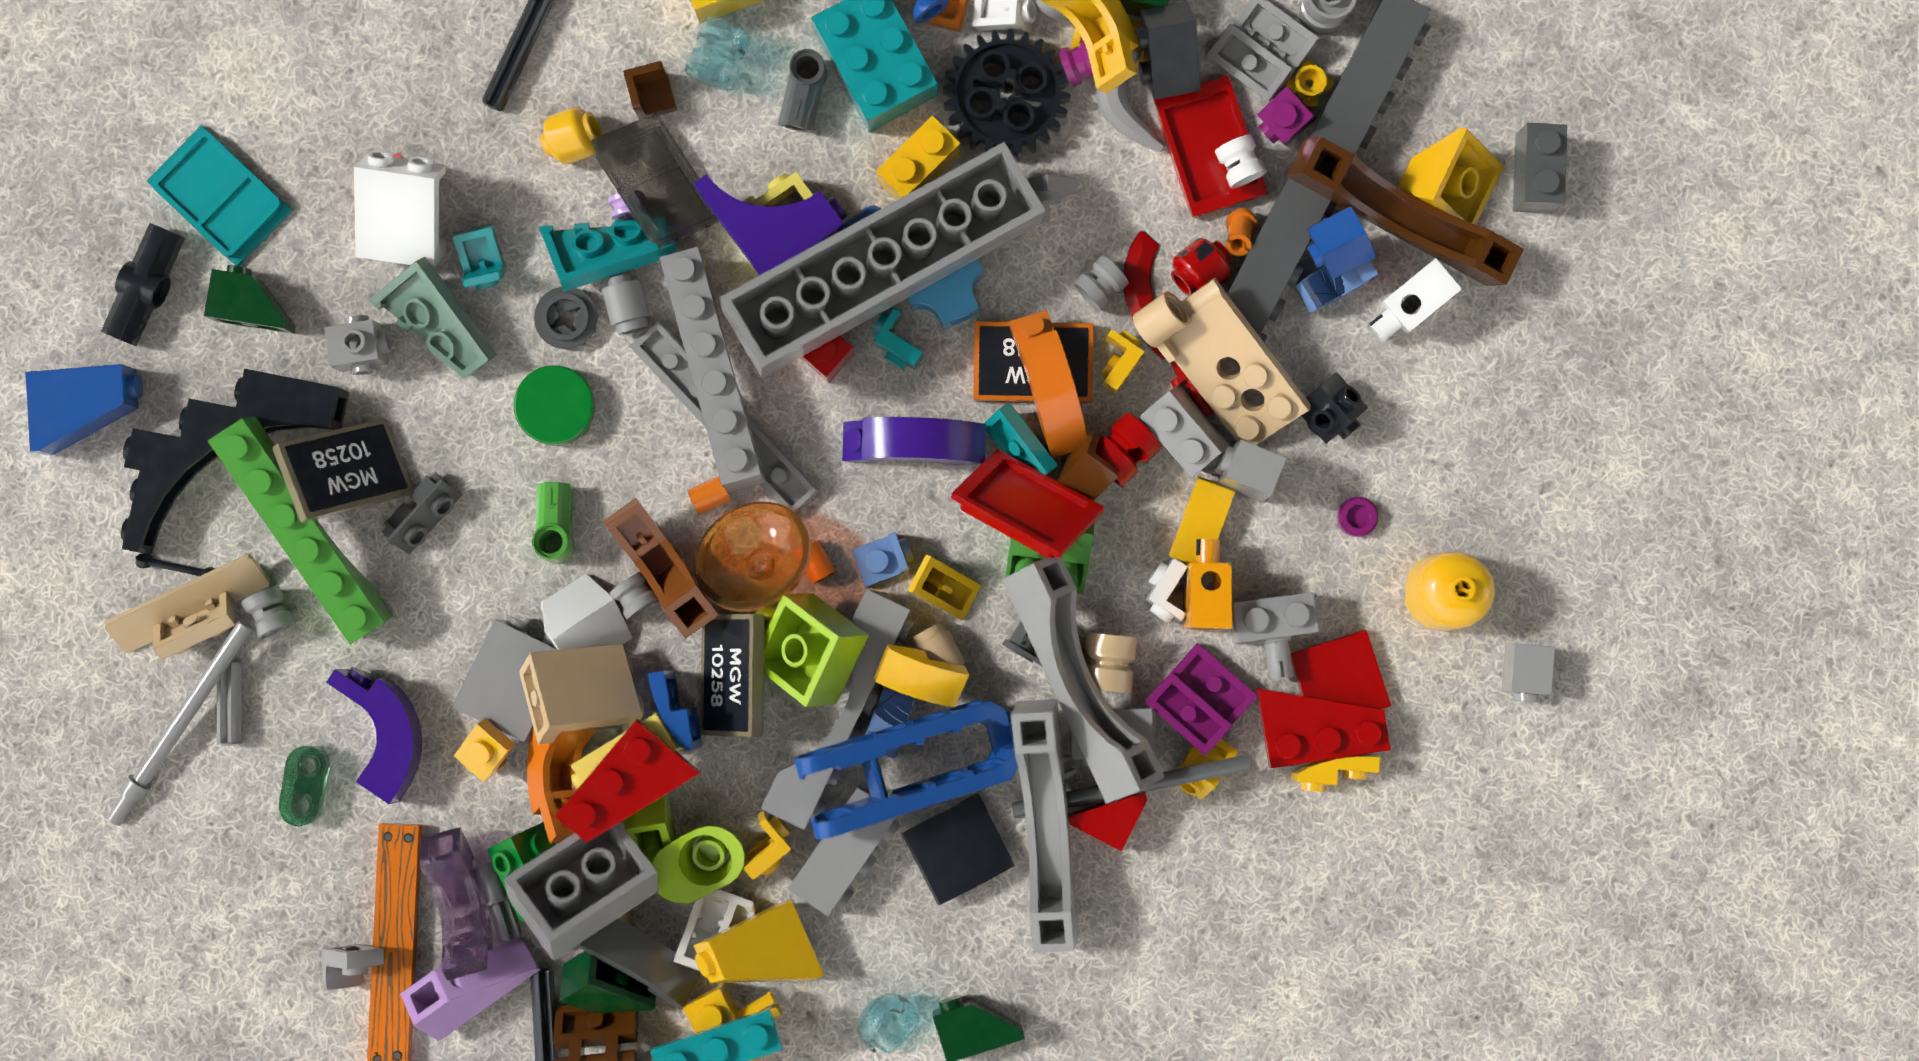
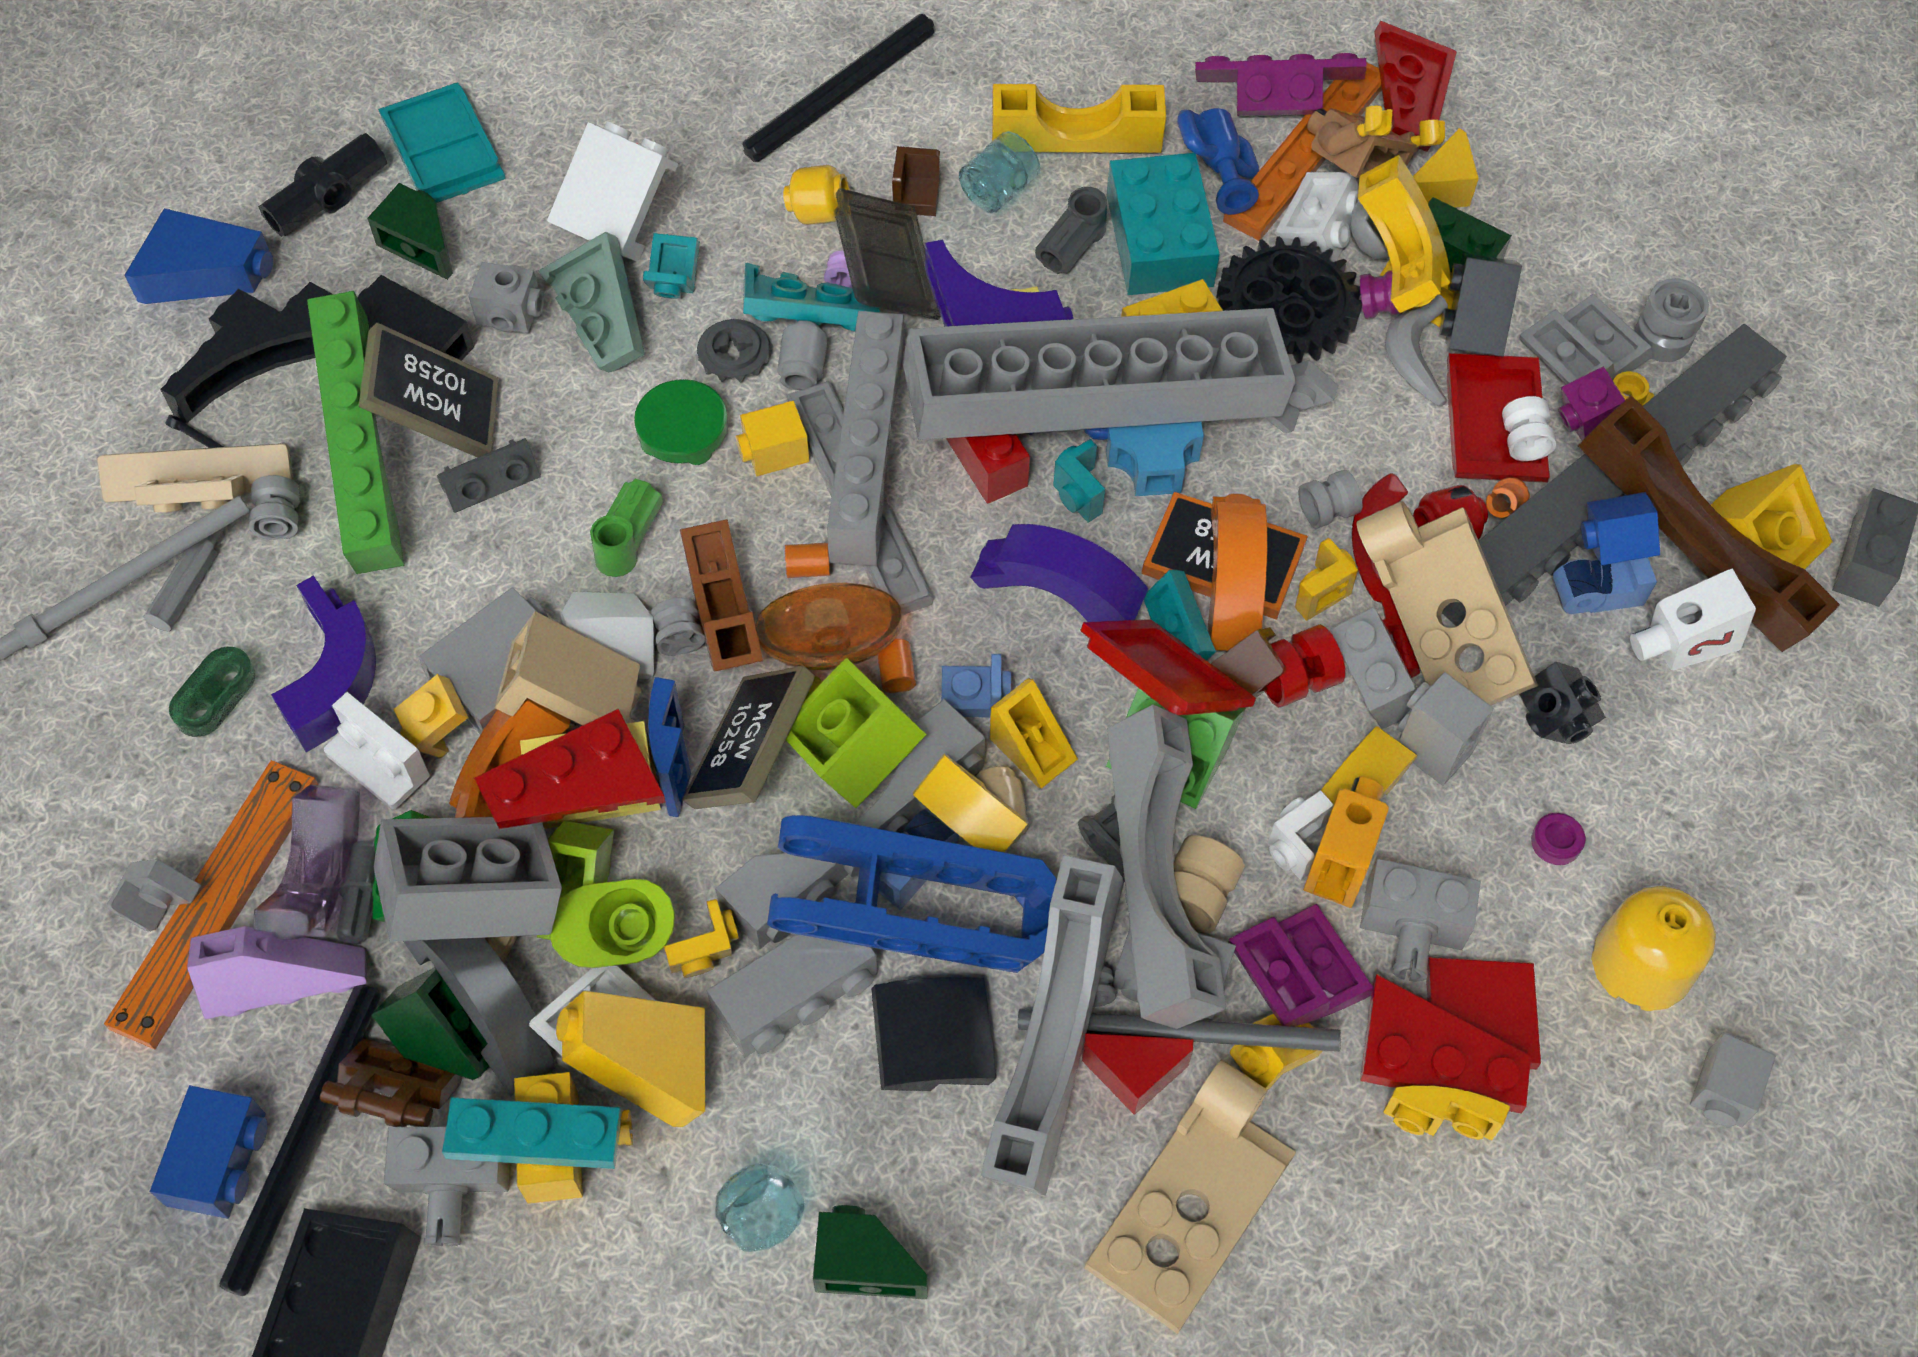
camera: 20 degrees right, 25 degrees down
(455, 793) = (375, 753): none -> white bracket
(636, 396) = (773, 438): none -> yellow brick
(1189, 860) = (1209, 1156): none -> tan hinge

